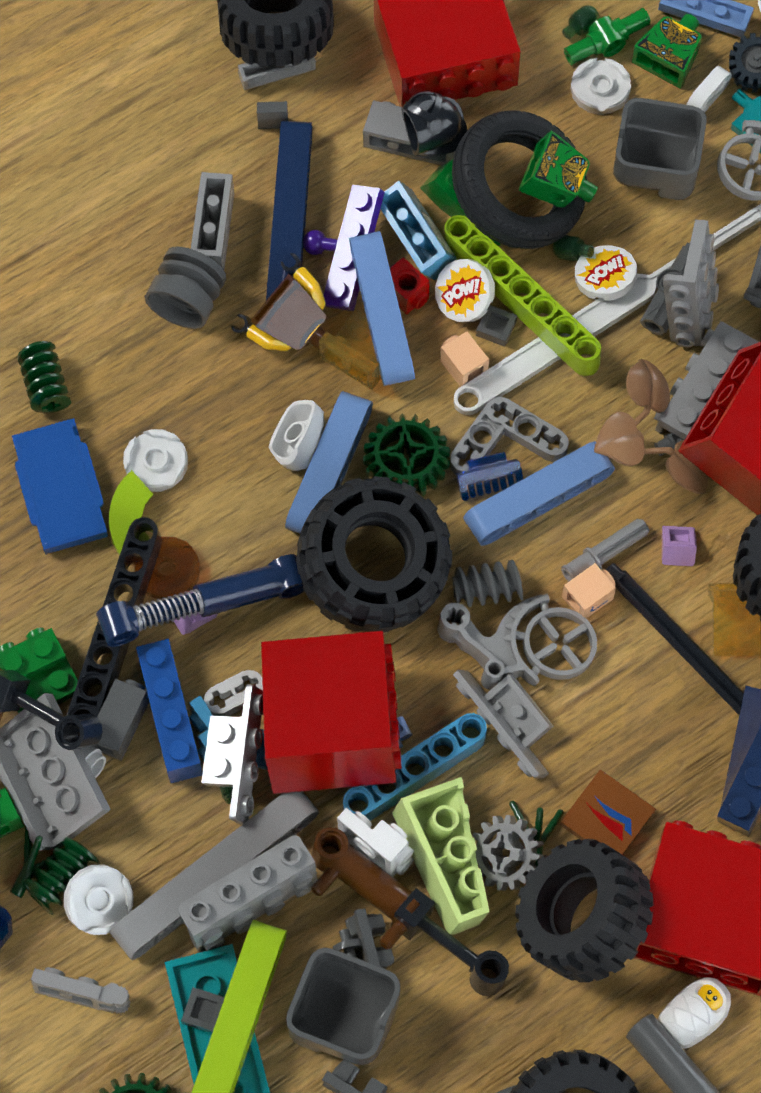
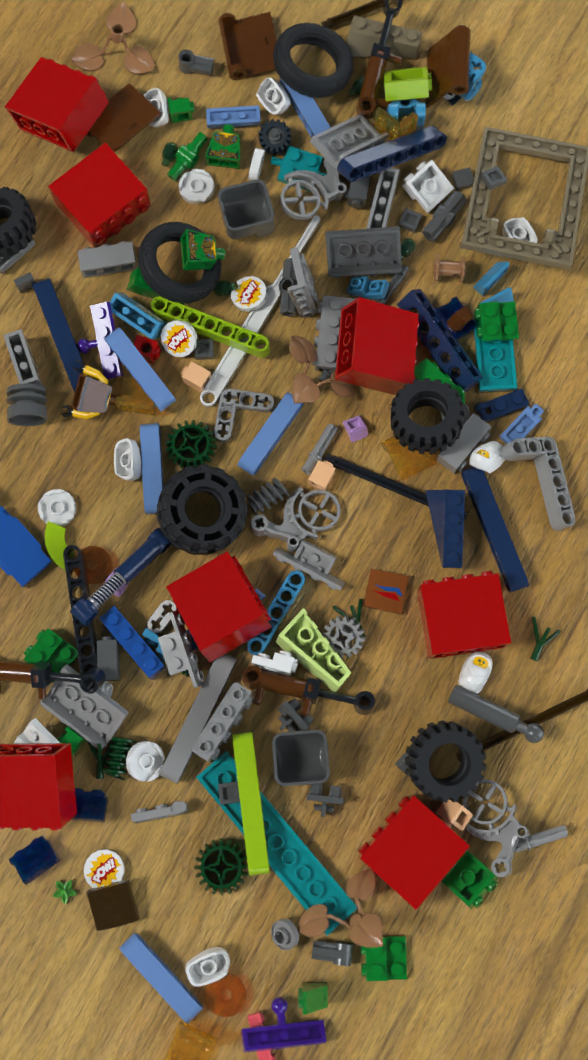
camera: 25 degrees left, 10 degrees up
(433, 123) = (118, 251): black helmet -> none
(488, 468) = (239, 432): clear blue piece -> none
(613, 926) = (420, 650): black tyre -> none

